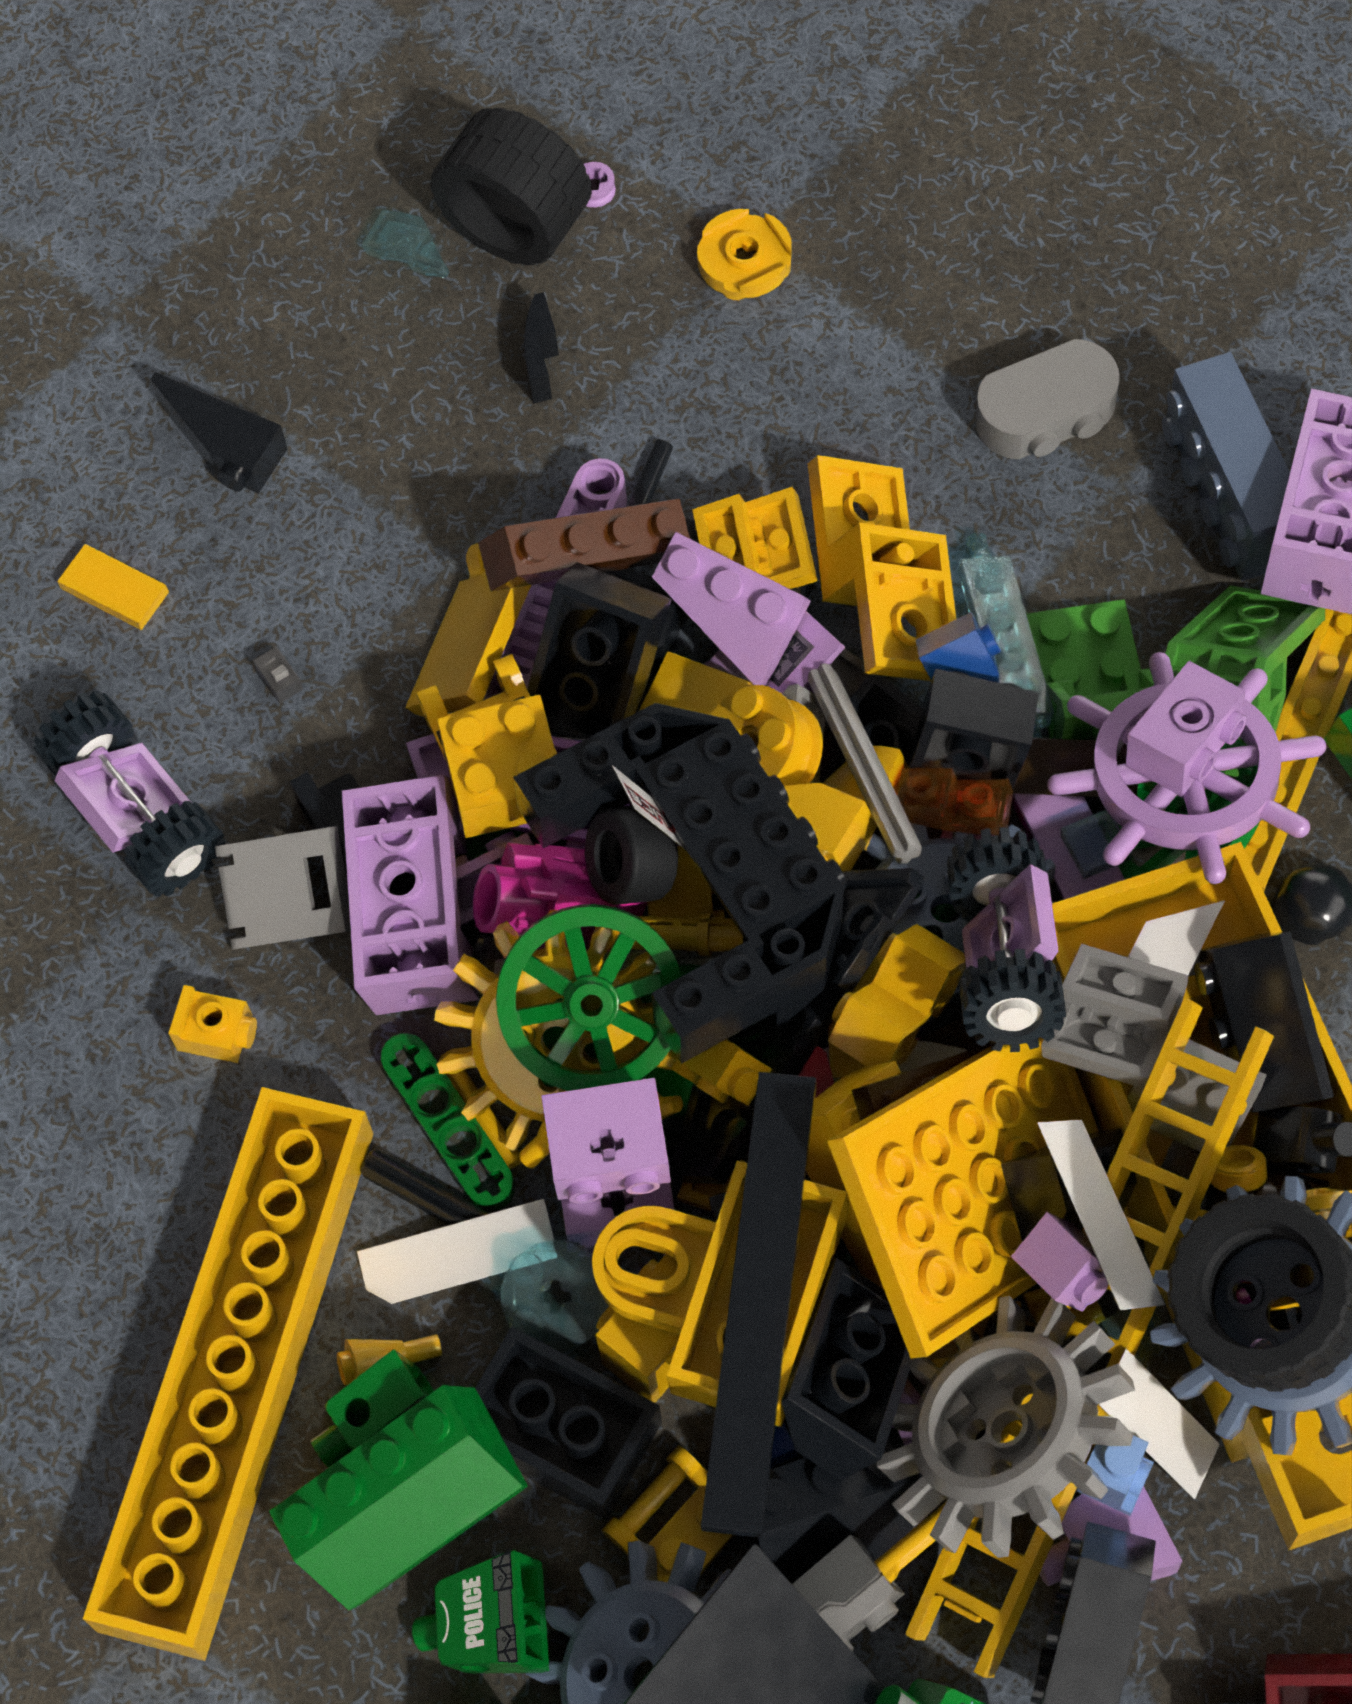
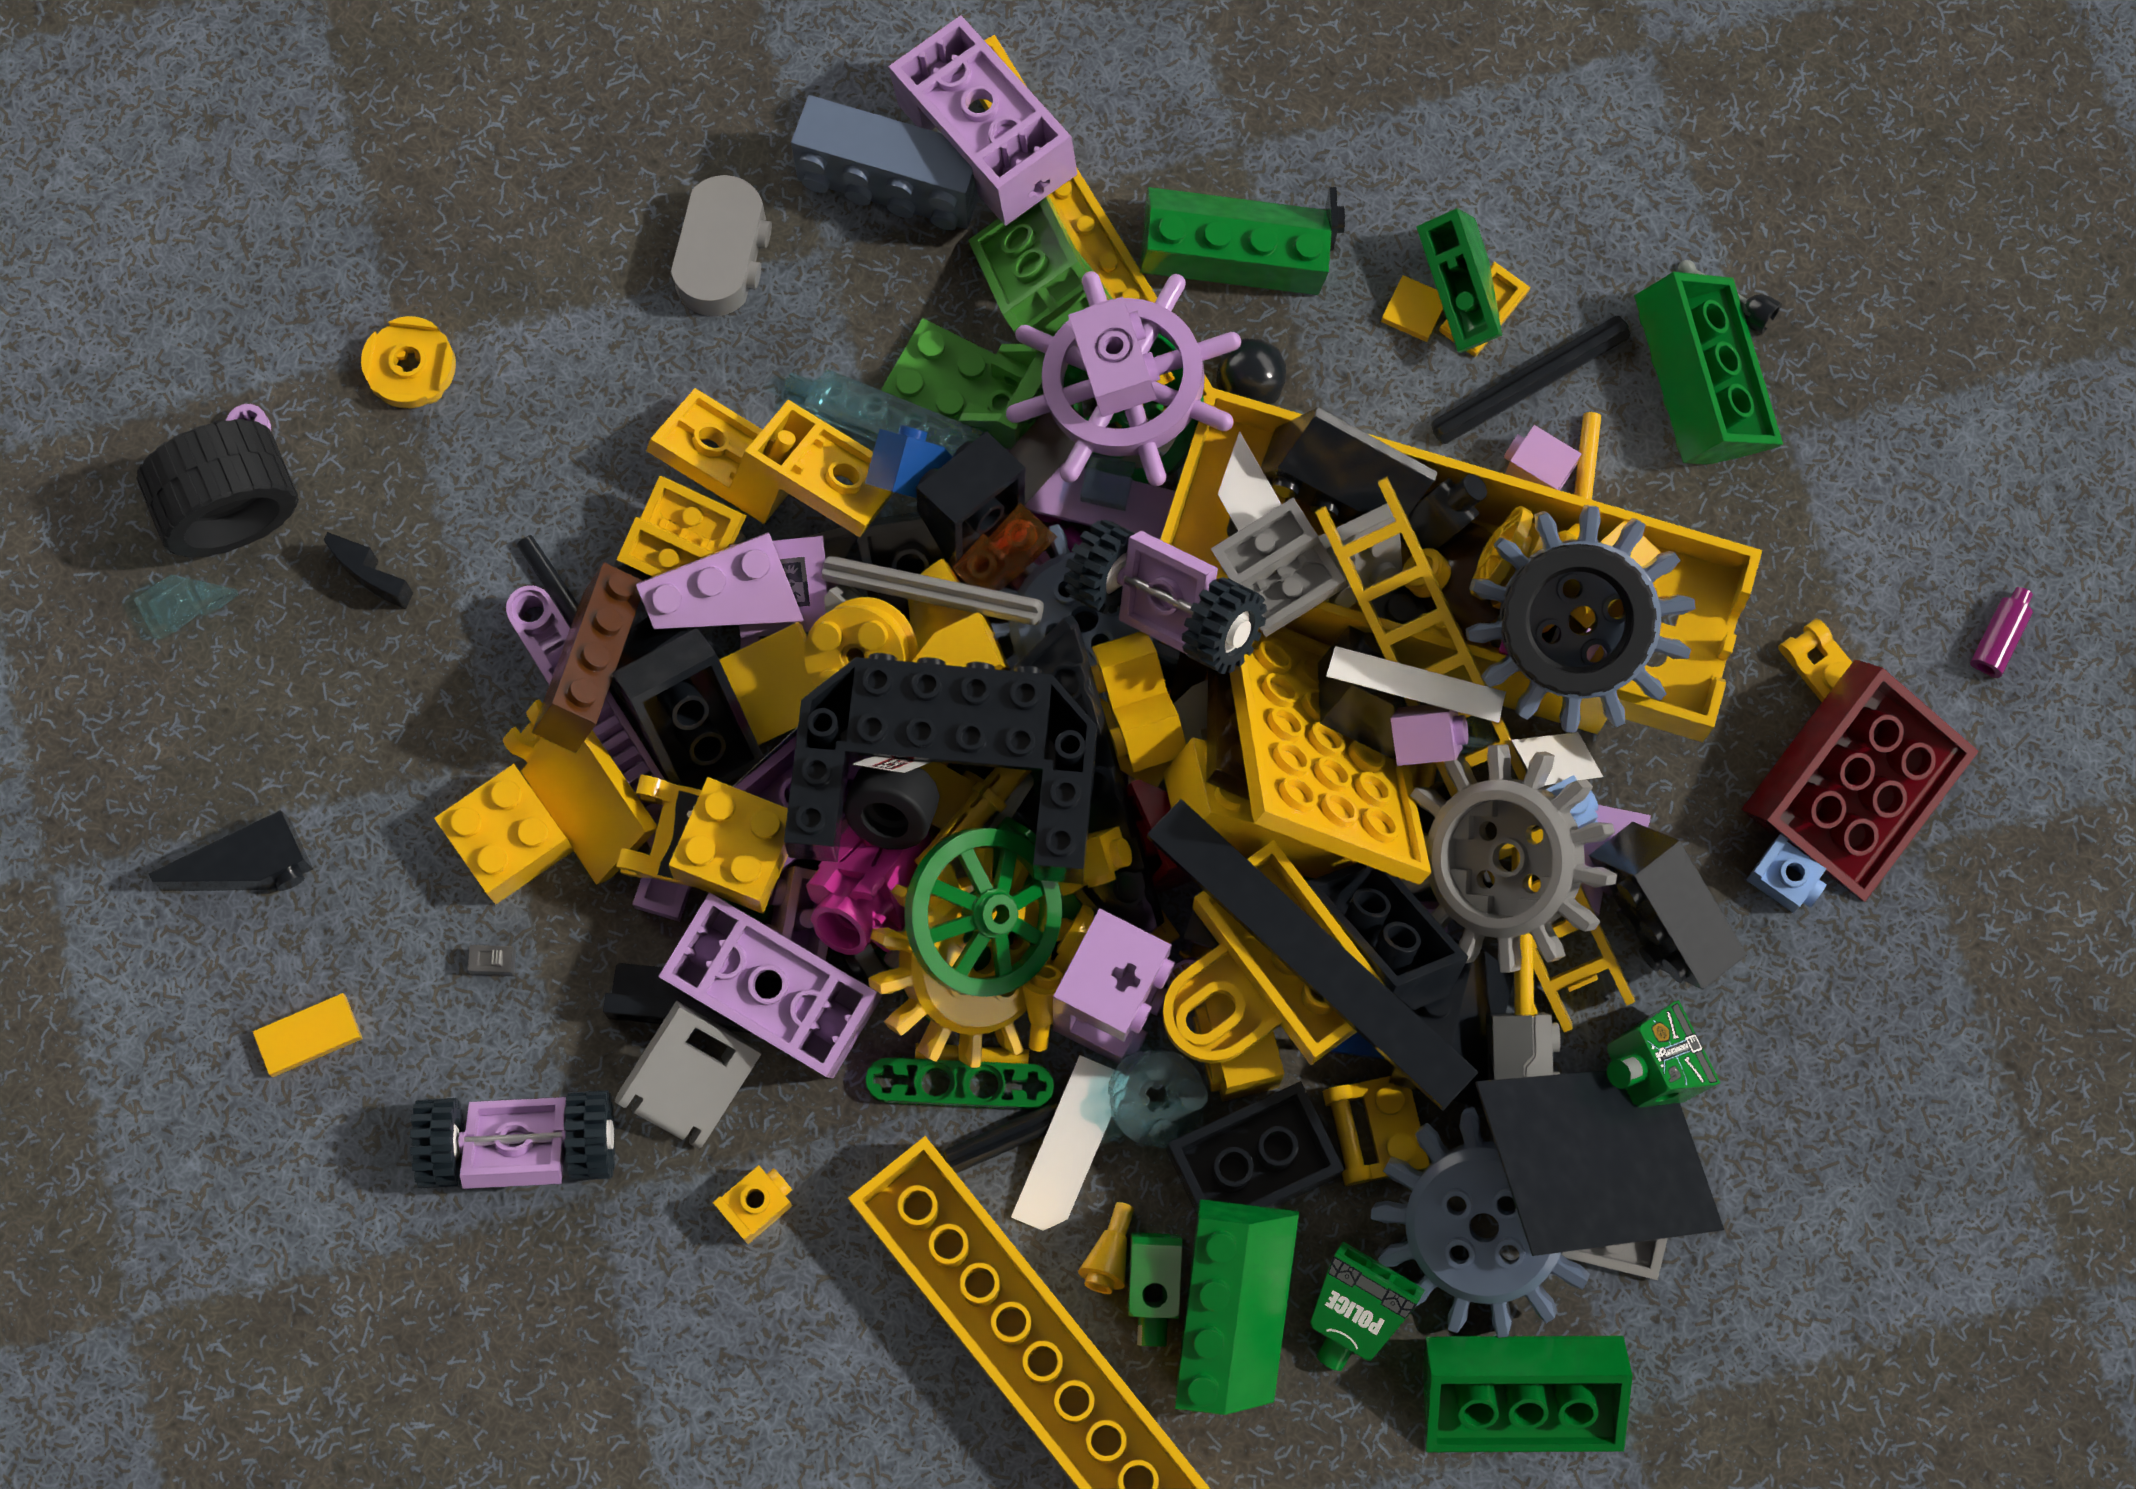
camera: 60 degrees left, 10 degrees up
(390, 603) = (504, 834): none -> yellow brick

